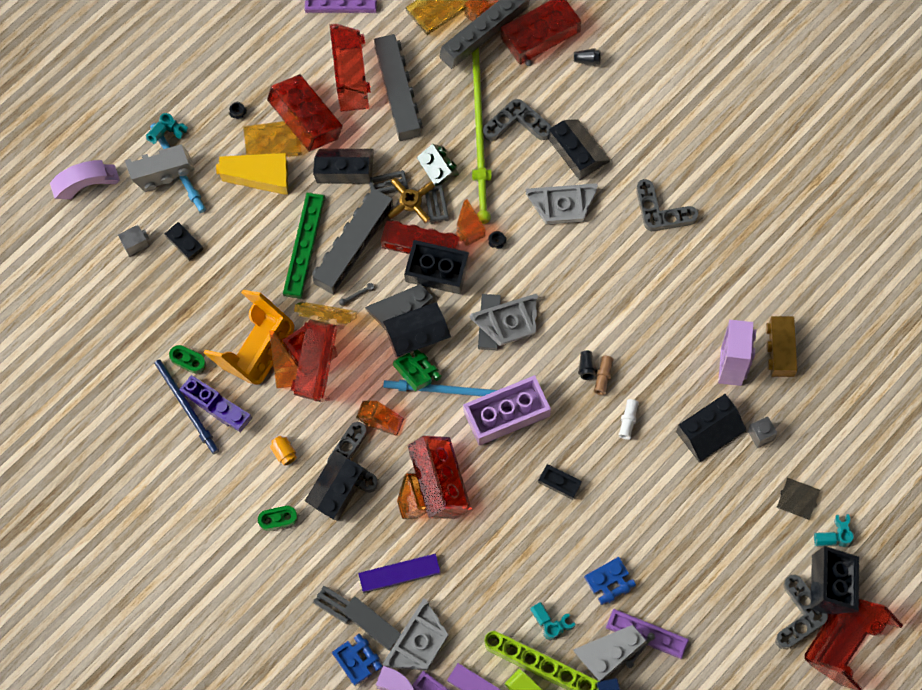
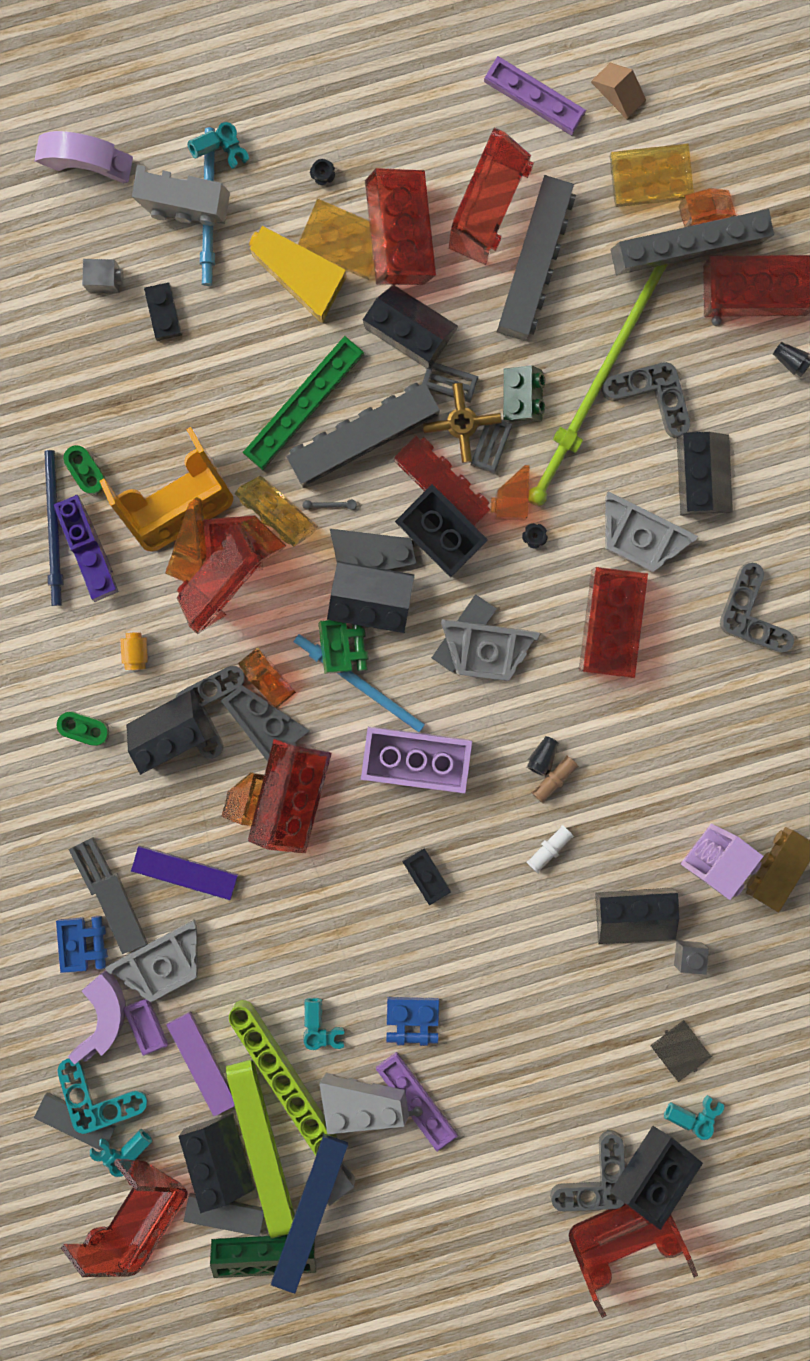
camera: 25 degrees right, 20 degrees up
(389, 447) = (261, 720): none -> dark grey wing
(578, 260) = (613, 622): none -> clear red brick

